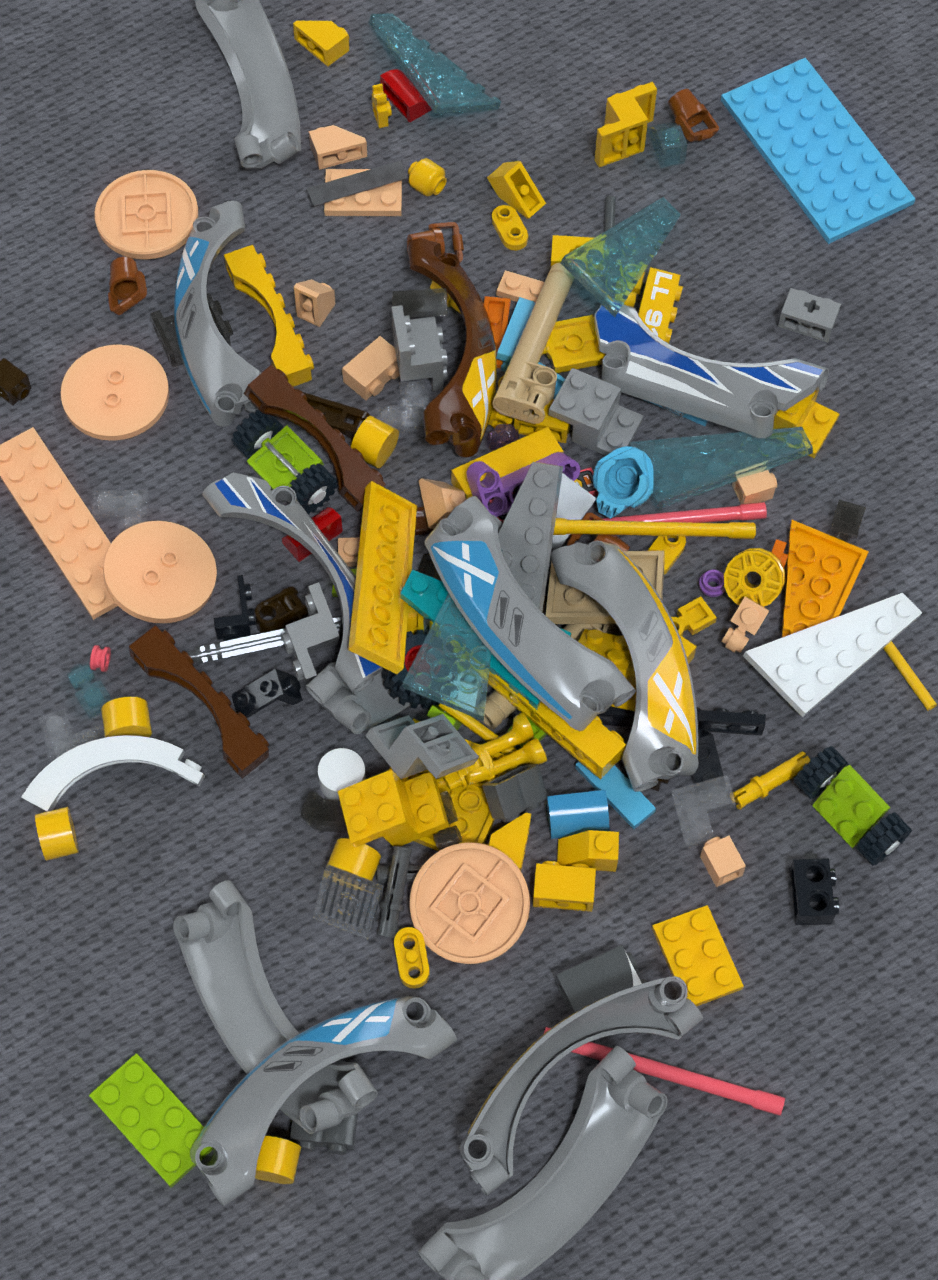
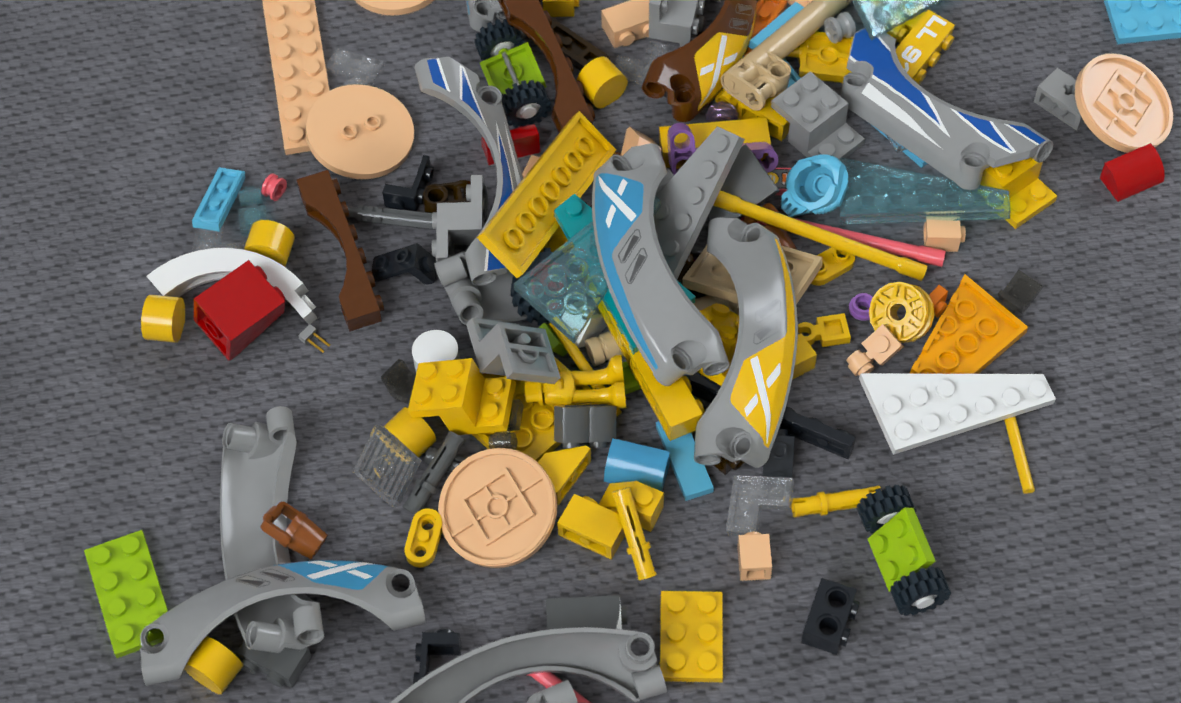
camera: 25 degrees right, 5 degrees down
(51, 690) = (218, 199): none -> medium azure tile
(132, 798) = (238, 308): none -> red slope
(203, 795) = (307, 333): none -> light grey piece
(294, 1000) = (301, 534): none -> dark orange piece
(475, 1052) = (435, 643): none -> black bracket
(576, 312) = (839, 27): none -> light grey wheel
(615, 890) = (644, 565): none -> yellow pin
(863, 303) = (1123, 102): none -> light nougat plate
(897, 368) = (1133, 172): none -> red brick

